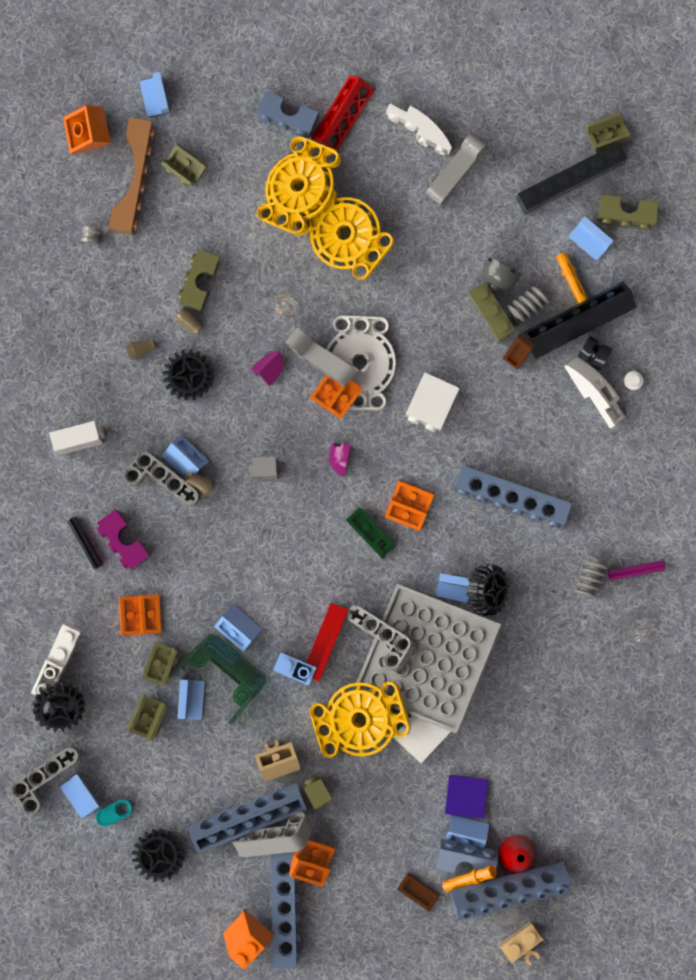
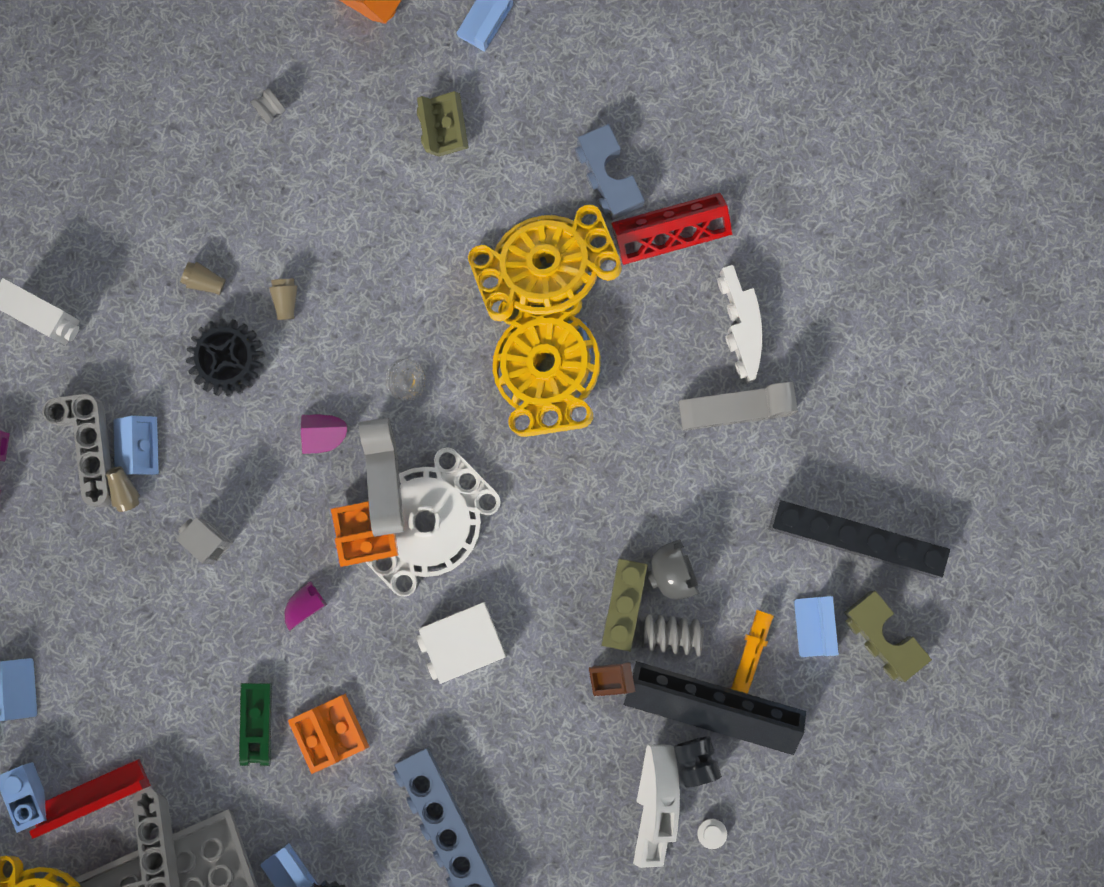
camera: 45 degrees right, 0 degrees up
(124, 214) = (328, 116): medium nougat arch -> none
(202, 265) = (313, 272): olive arch -> none
(607, 132) = (949, 525): olive bracket -> none

